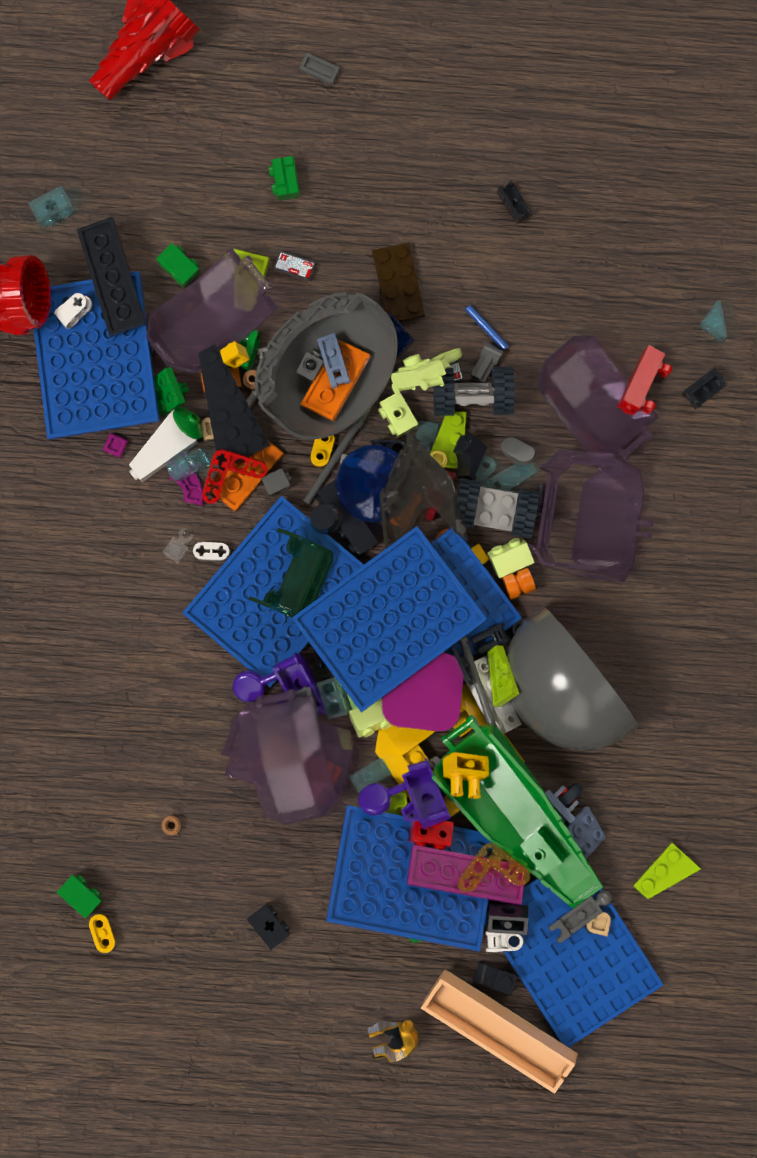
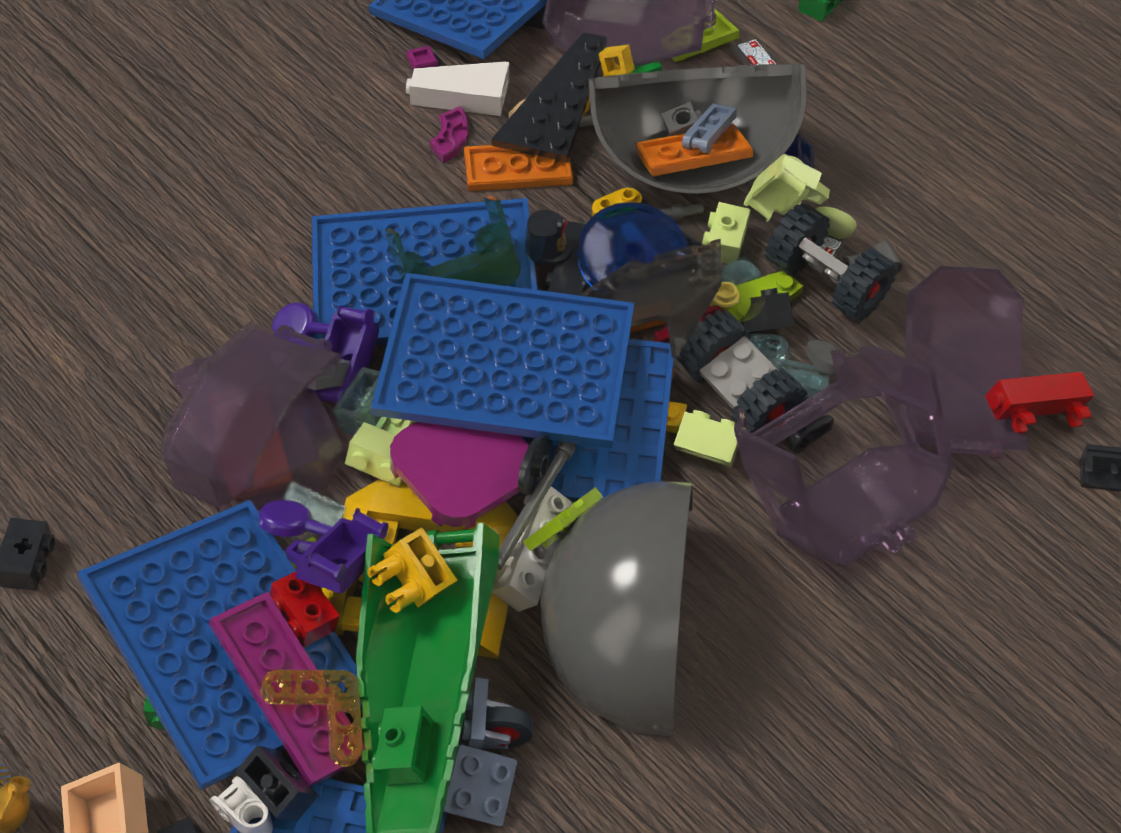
camera: 50 degrees right, 30 degrees down
(165, 828) = (62, 378): medium nougat plate -> none
(169, 391) = (519, 46): green plate -> none
(176, 548) = (376, 171): clear plate -> none
(187, 464) = (467, 107): clear light blue arch -> none
(188, 423) = (509, 82): green dish -> none
(211, 556) = (407, 195): white beam -> none
(229, 465) = (505, 134): red beam -> none
(276, 482) = (538, 190): dark grey brick -> none
(398, 282) = (850, 142): dark brown plate -> none
(486, 327) = (905, 240): blue bar -> none
(496, 639) = (606, 481): black piece -> none
(514, 202) = (1046, 165): black hinge -> none
(518, 583) = (687, 468): orange wheel -> none

